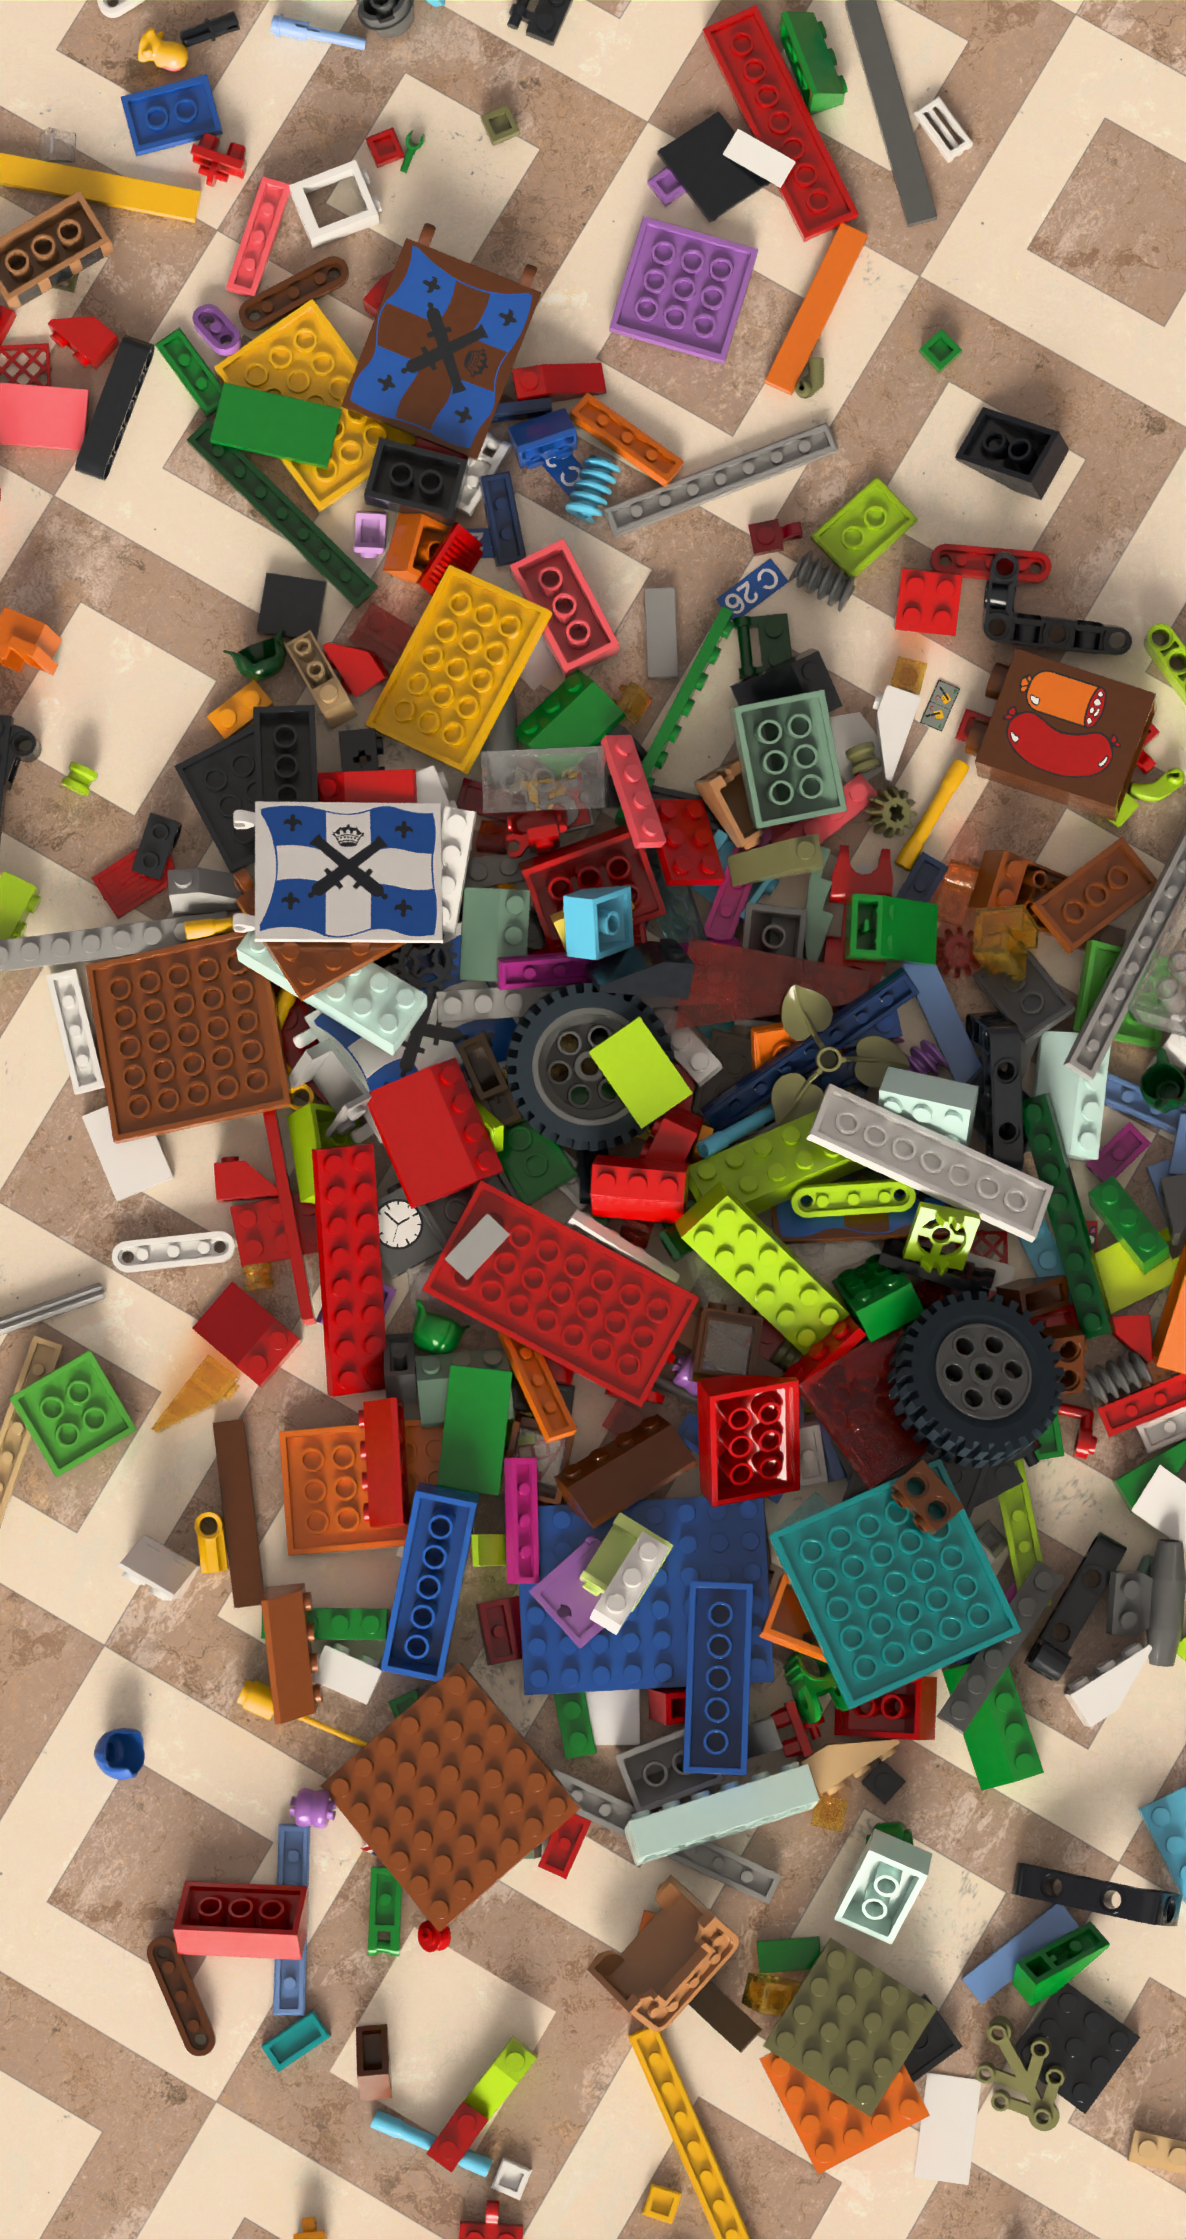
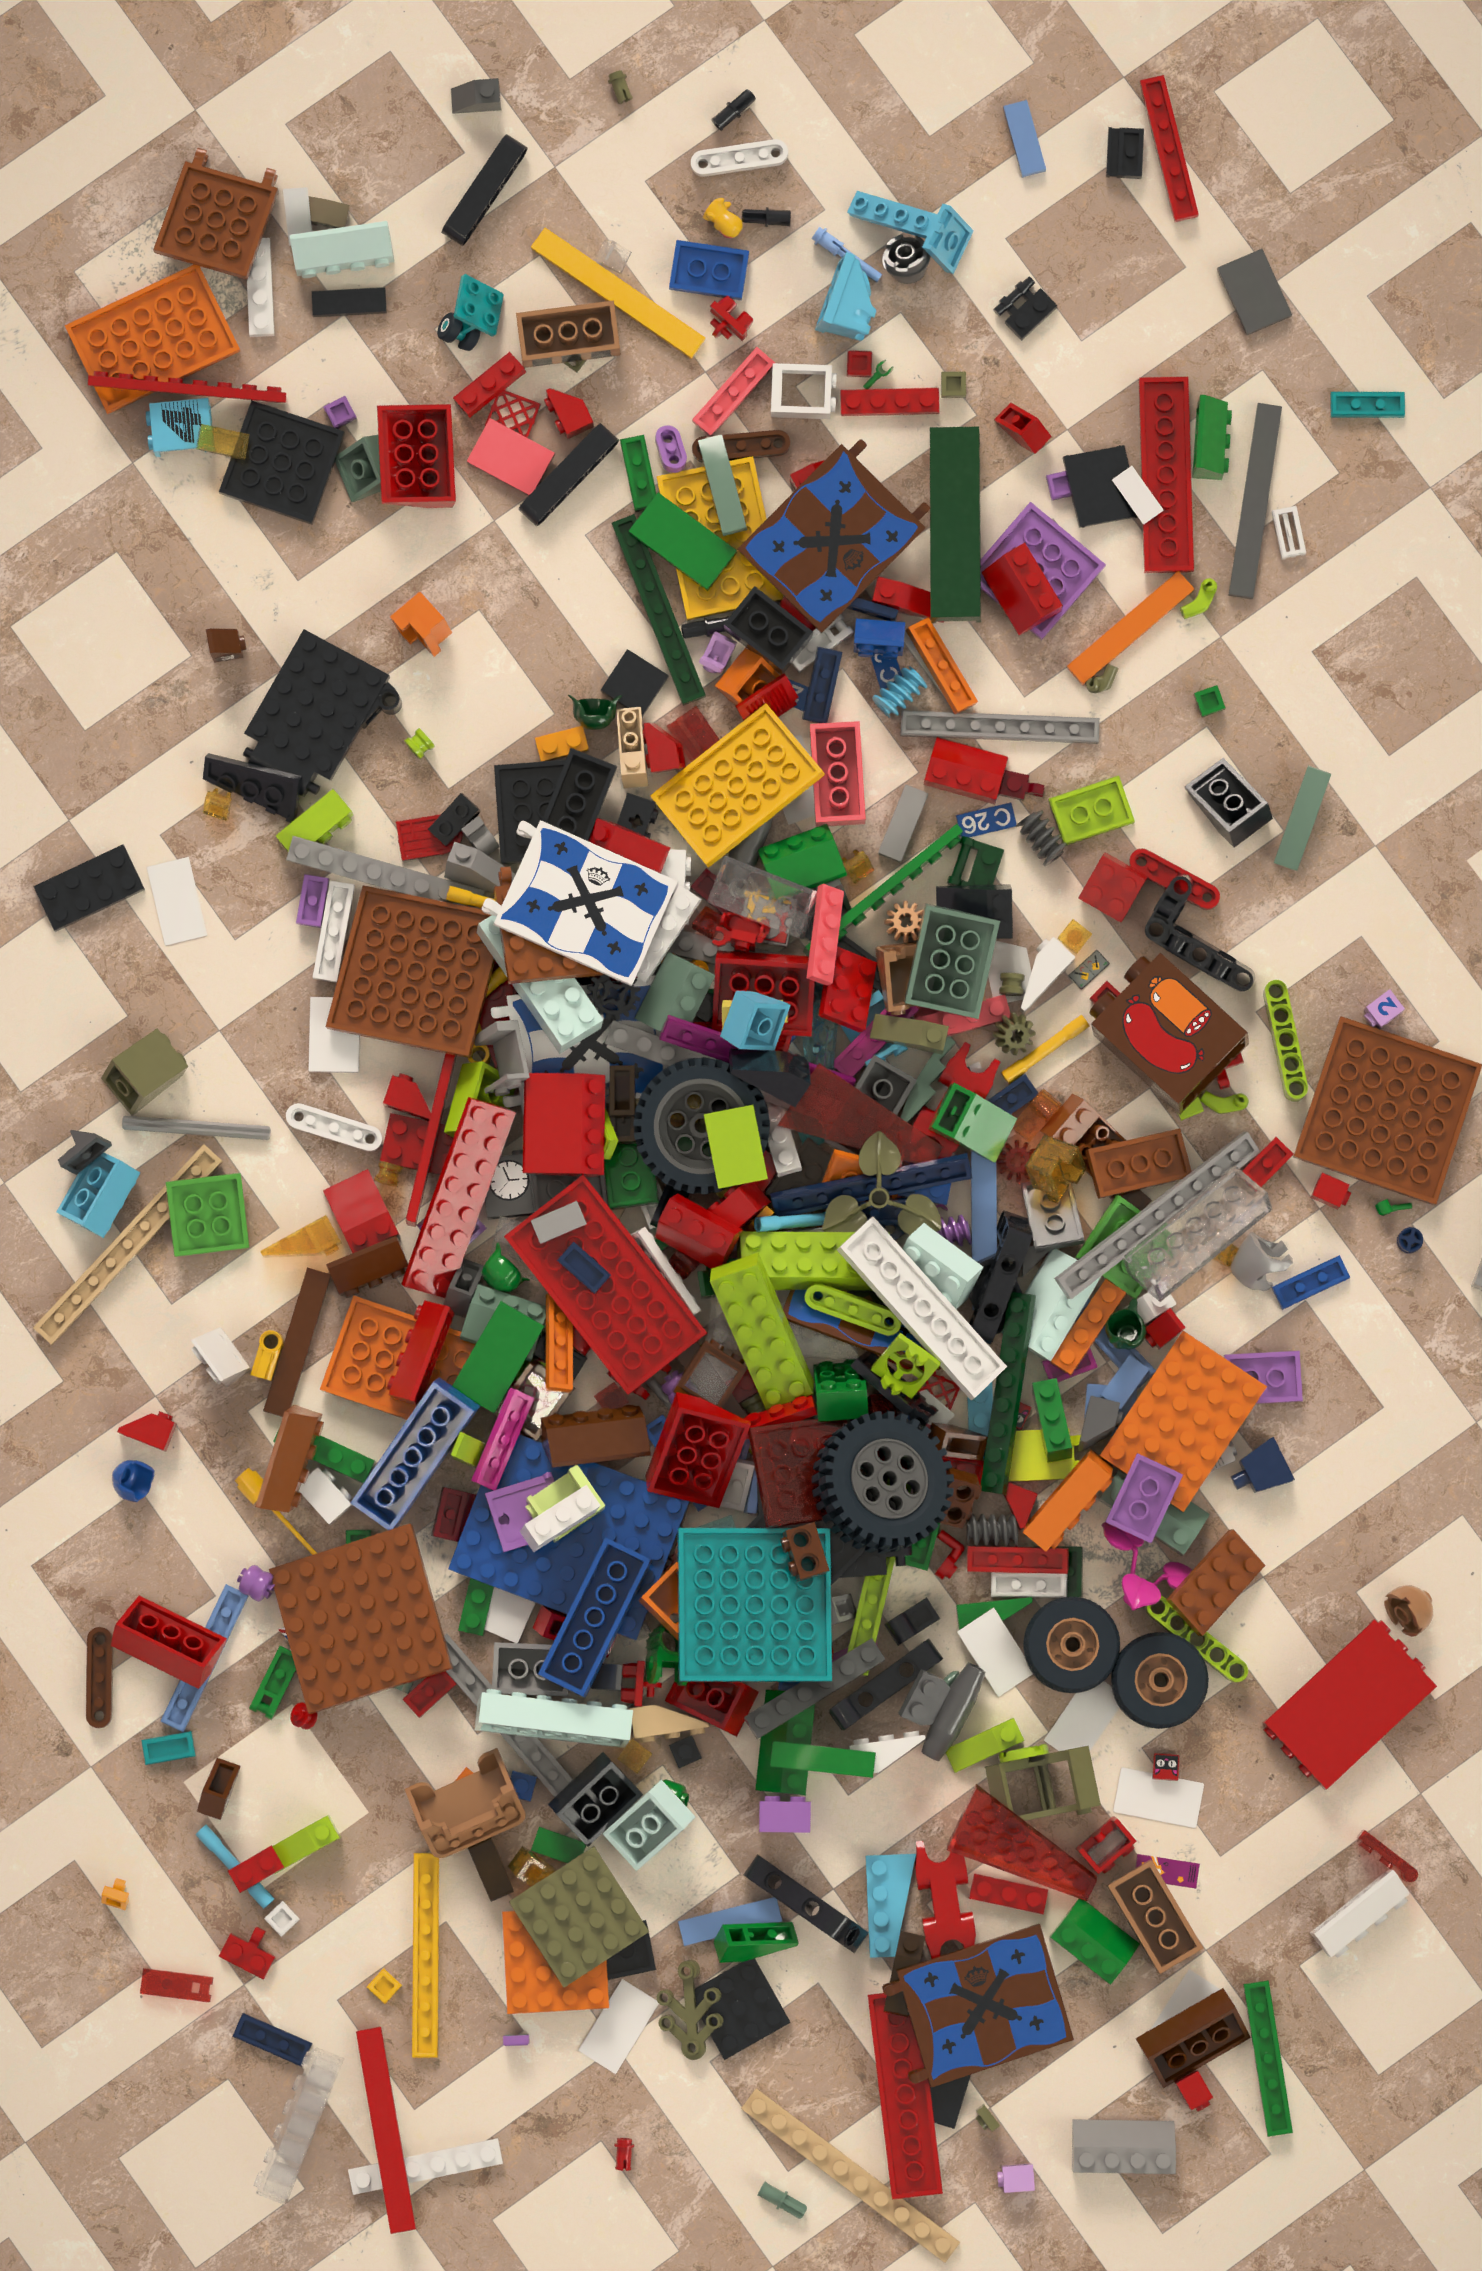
camera: 25 degrees right, 0 degrees up
(36, 1007) = (312, 901): none -> medium lavender plate
(116, 1686) = (151, 1430): none -> red slope
(193, 852) = (480, 836): none -> light grey leg
(282, 1392) = (368, 1267): none -> reddish brown slope
(292, 343) = (722, 485): none -> sand green slope
(341, 82) = (848, 302): none -> medium azure piece
(342, 512) = (703, 627): none -> black axle
(437, 175) = (889, 401): none -> red plate
(528, 1285) = (584, 1267): none -> dark blue tile
(572, 275) = (955, 524): none -> dark green tile
(599, 138) = (1023, 428): none -> red slope
(679, 314) = (1022, 589): none -> red slope
(703, 746) = (896, 922): none -> light nougat gear
(705, 545) = (965, 770): none -> red slope
(718, 1901) = (524, 1785): none -> blue plate
(808, 1883) = (595, 1799): none -> black brick
(839, 2198) = (516, 2040): none -> medium lavender tile
(882, 244) = (1202, 602): none -> lime arm
(1032, 1806) = (784, 1816): none -> medium lavender brick
(1047, 1723) = (822, 1759): none -> green slope
(1072, 1521) = (912, 1621): none -> black plate
(1101, 434) = (1302, 818): none -> sand green slope
(1121, 1103) = (1088, 1327): none -> orange plate

